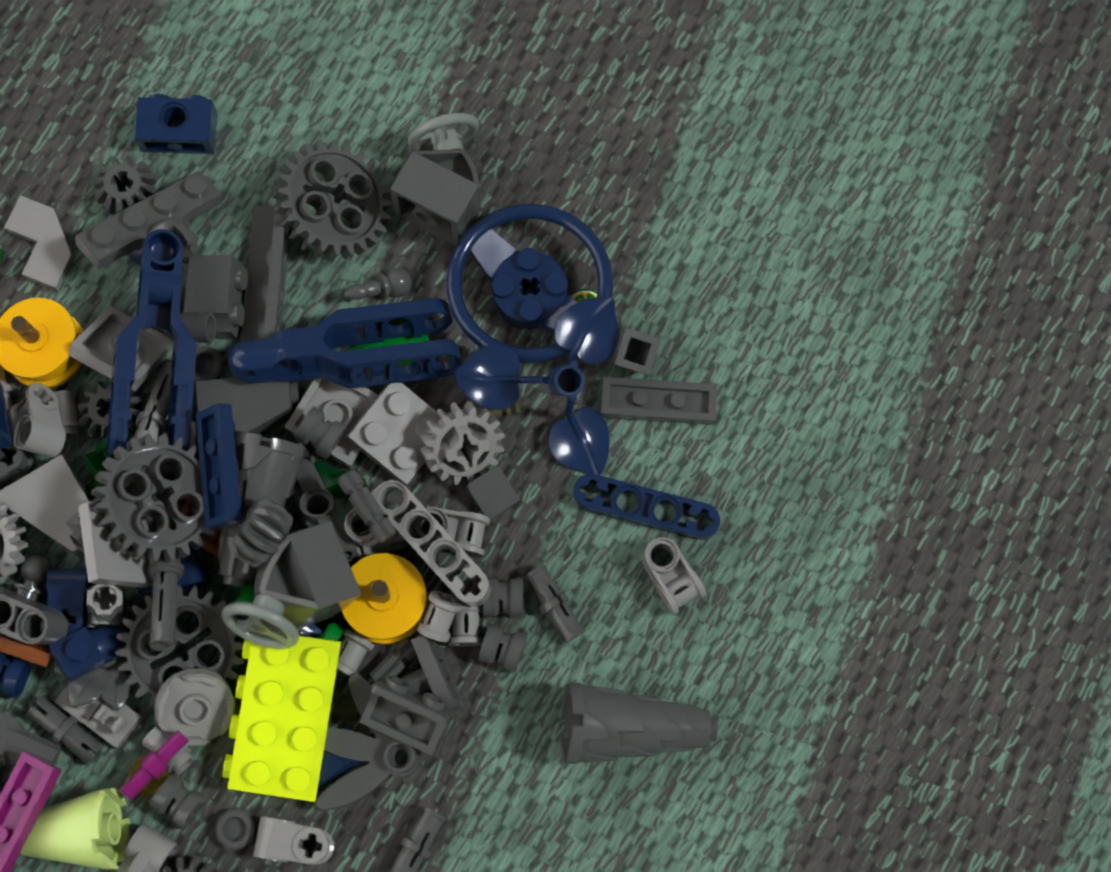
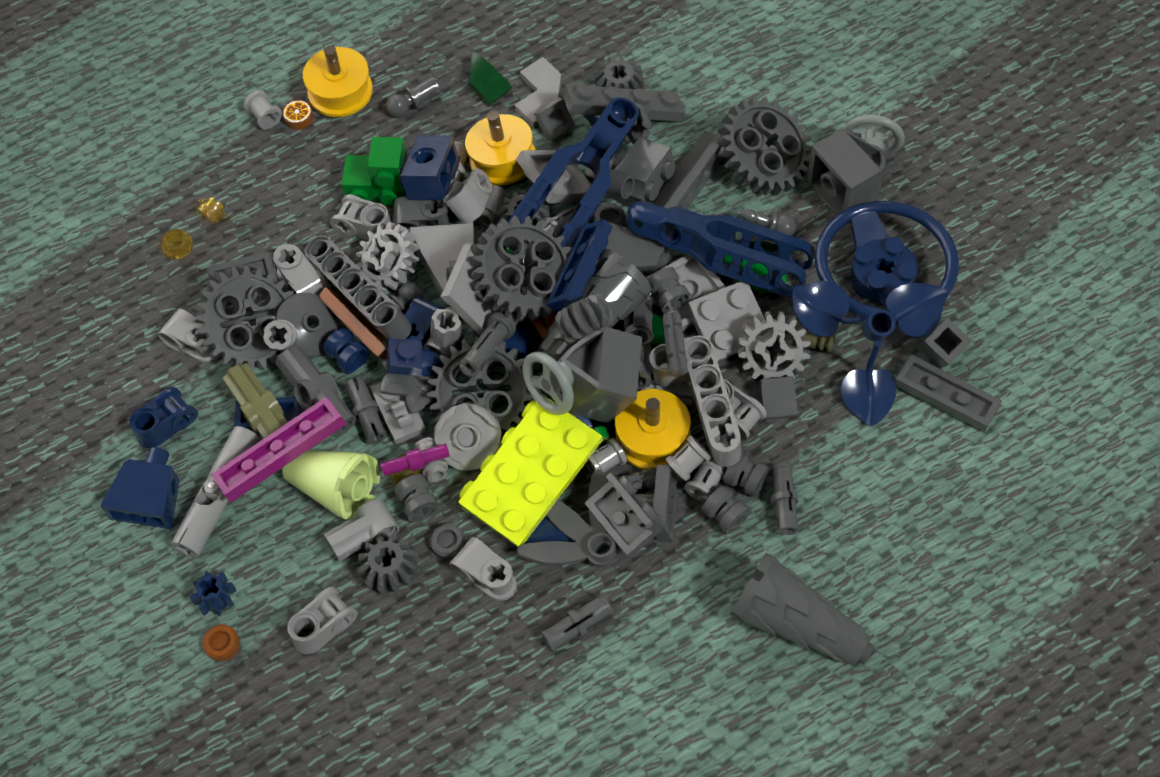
camera: 35 degrees right, 15 degrees down
(77, 273) = (554, 119): none -> dark grey plate
(195, 134) = (677, 57): dark blue brick -> none
(647, 499) = (901, 461): dark blue beam -> none
(673, 576) = (892, 526): light grey piece -> none

